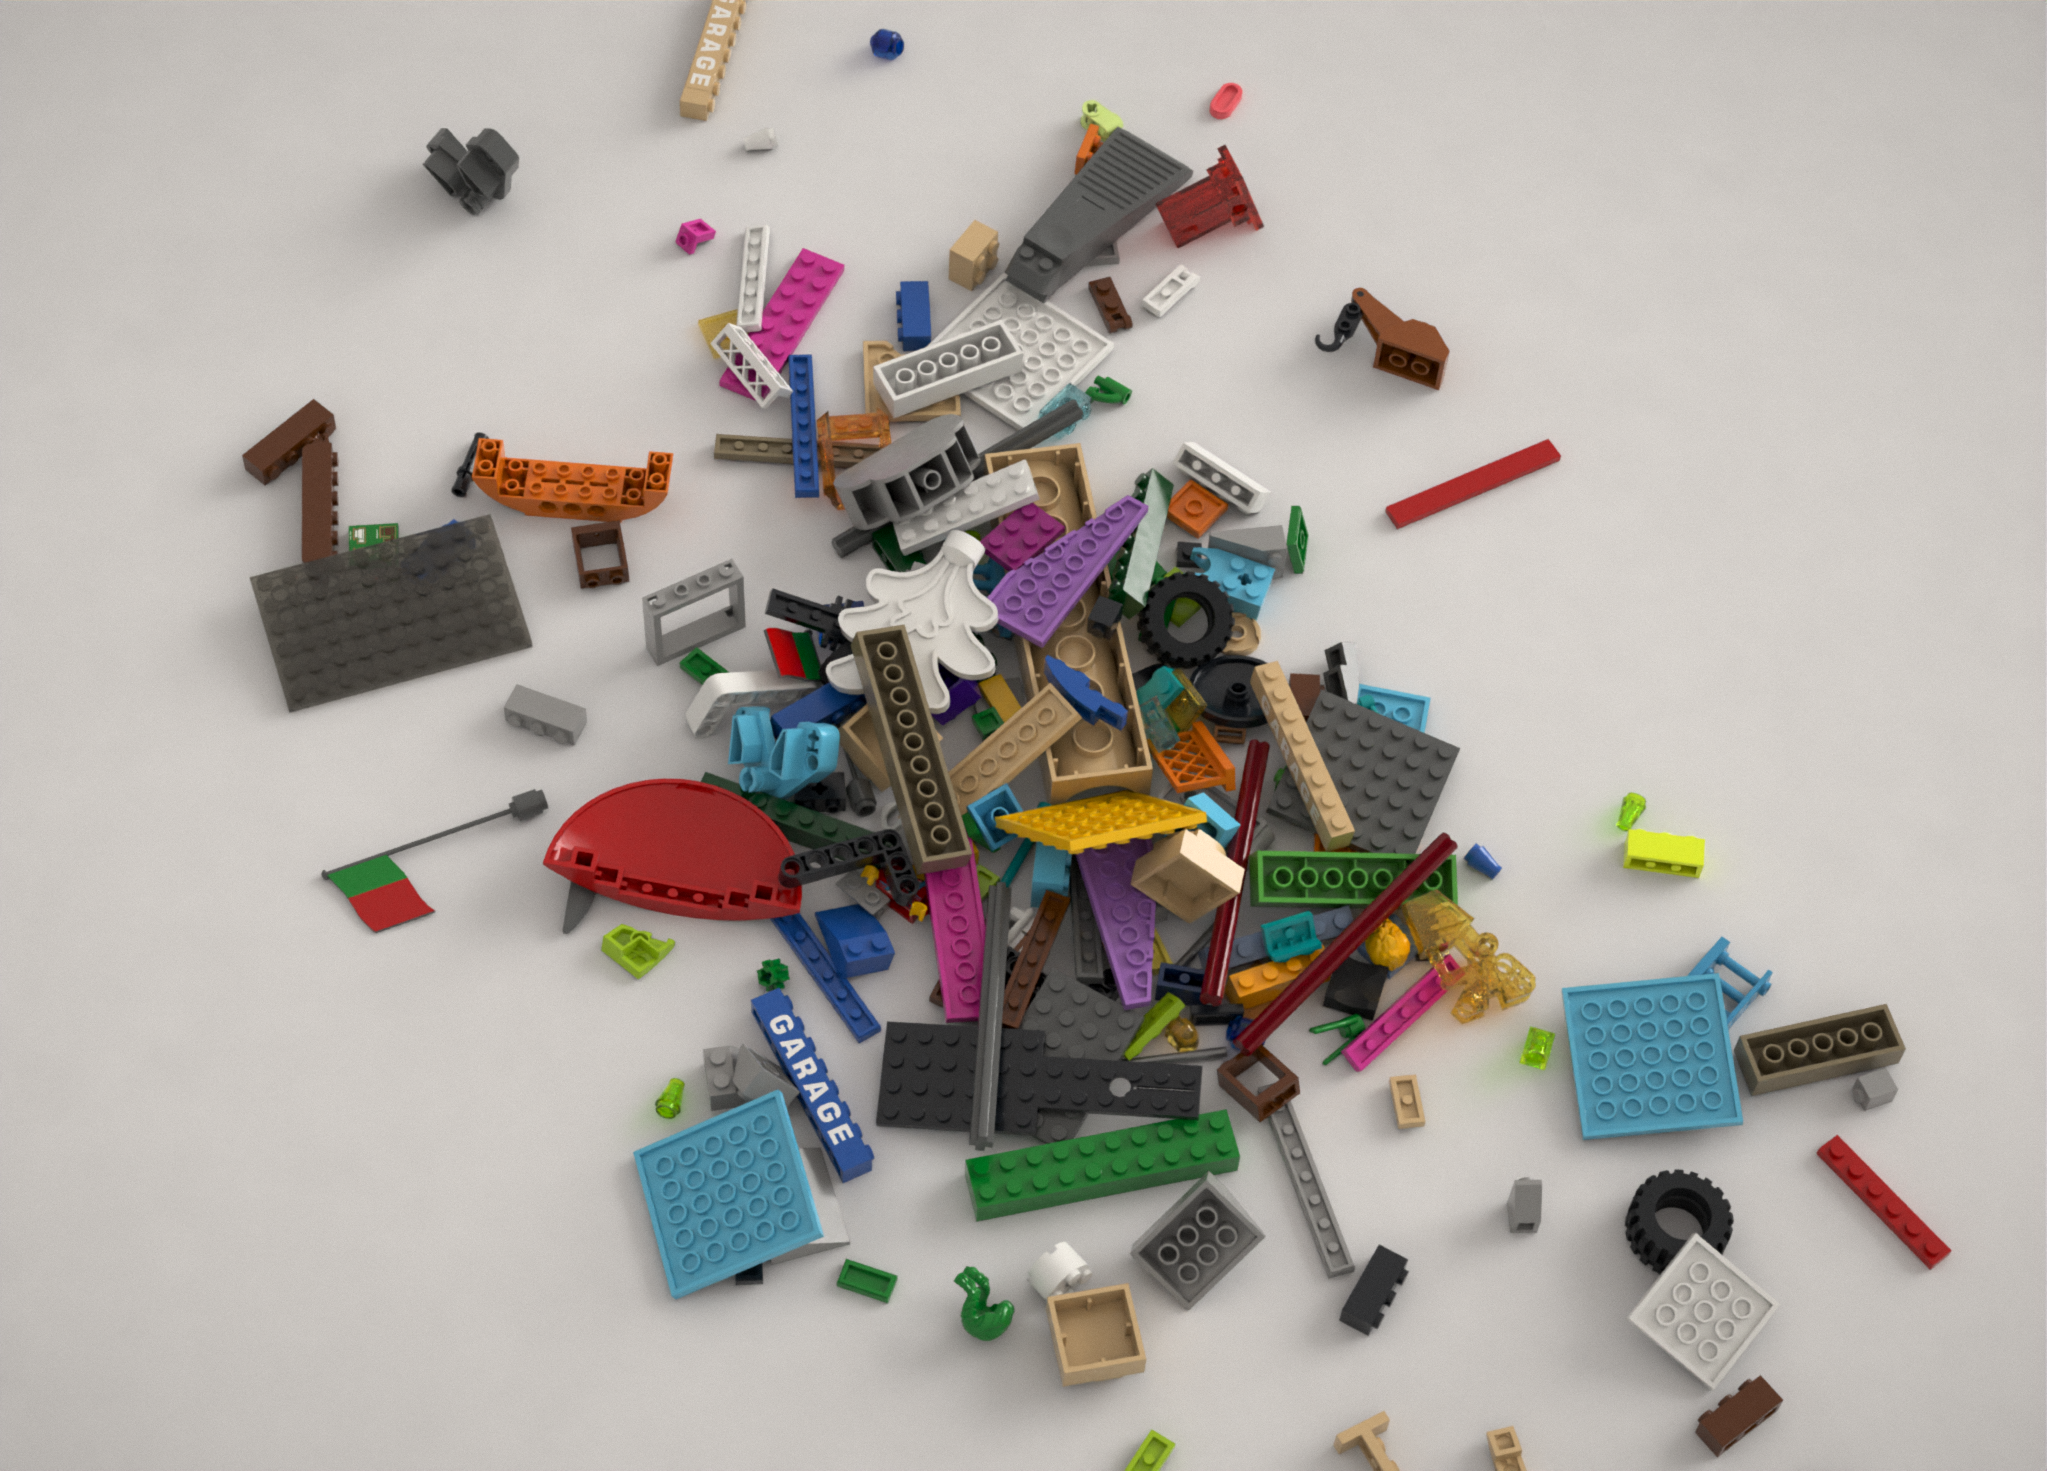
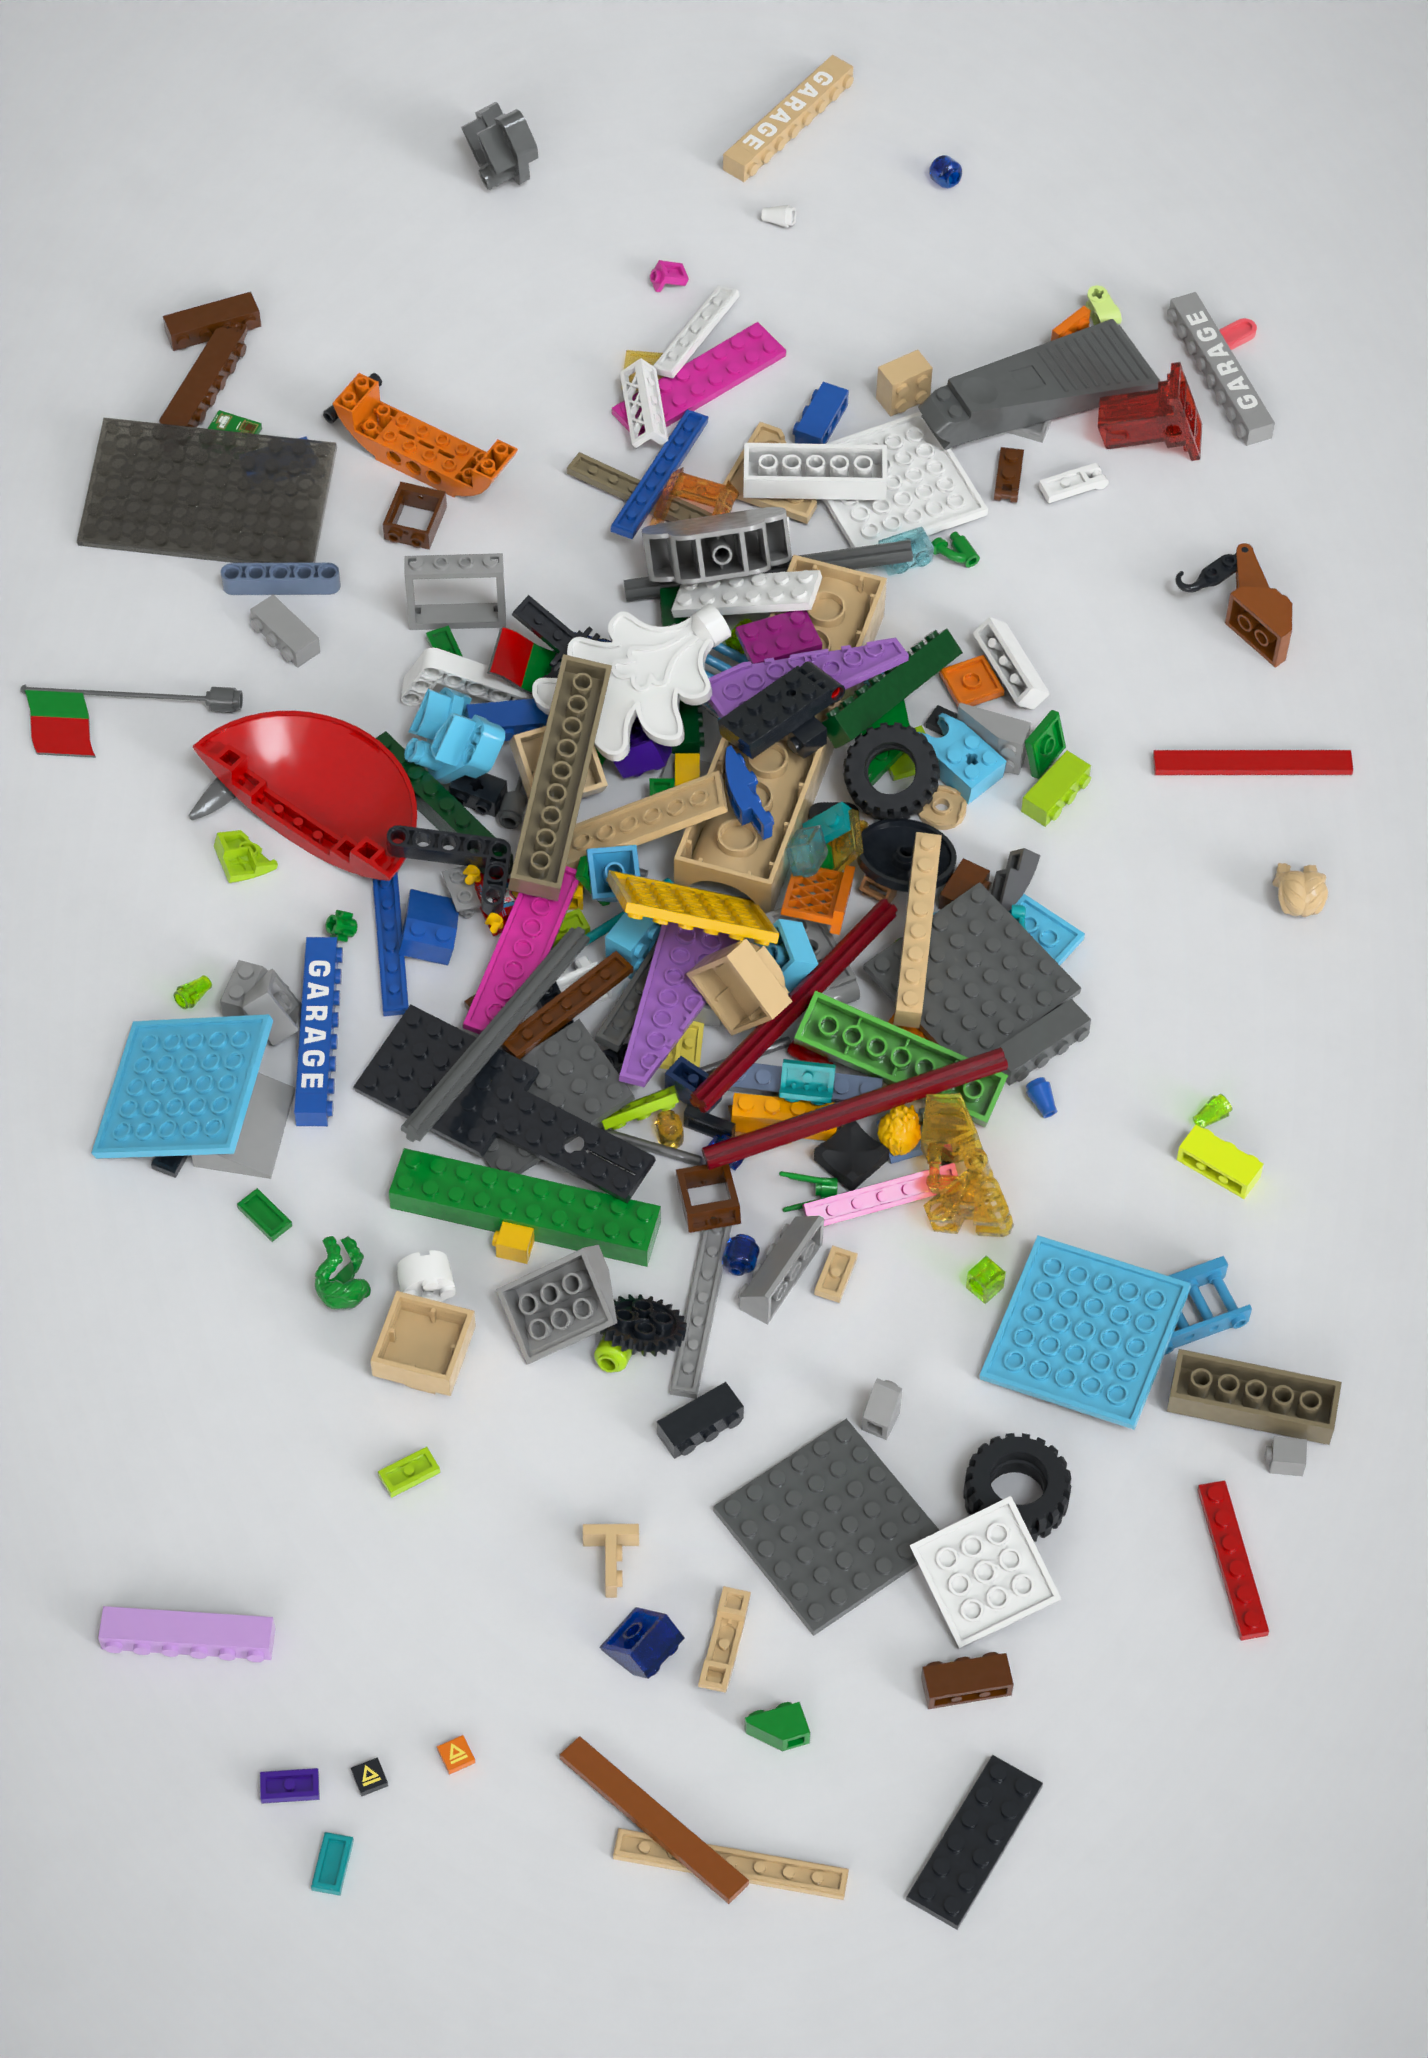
camera: 30 degrees right, 0 degrees up
(518, 657) = (280, 578): none -> sand blue beam
(1072, 603) = (780, 709): none -> black hinge
(1111, 1202) = (514, 1242): none -> yellow brick
(1242, 140) = (1221, 369): none -> light grey brick
(1260, 913) = (803, 1054): none -> red piece
(1262, 1264) = (611, 1358): none -> lime head
(1285, 1224) = (646, 1326): none -> black gear
(1317, 1121) = (740, 1254): none -> clear blue head
(1327, 576) = (1056, 788): none -> lime brick
(1360, 1116) = (782, 1268): none -> light grey slope
(1455, 805) = (1044, 1040): none -> dark grey brick
(1538, 1333) = (827, 1526): none -> dark grey plate
(1588, 581) = (1300, 891): none -> tan hair

